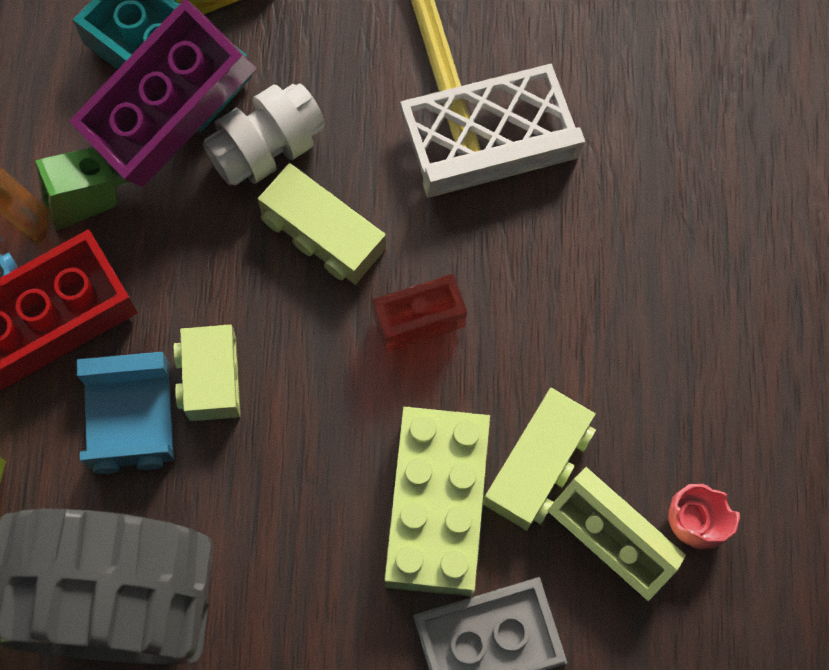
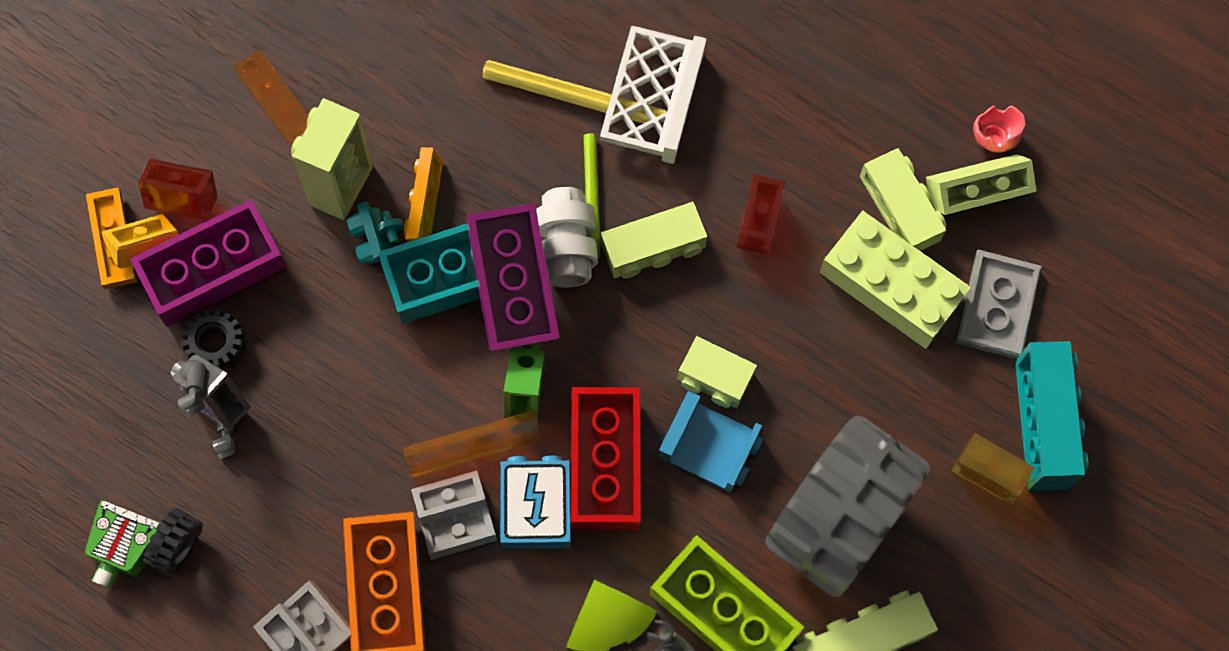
camera: 60 degrees left, 0 degrees up
(344, 135) = (591, 182): none -> lime bar

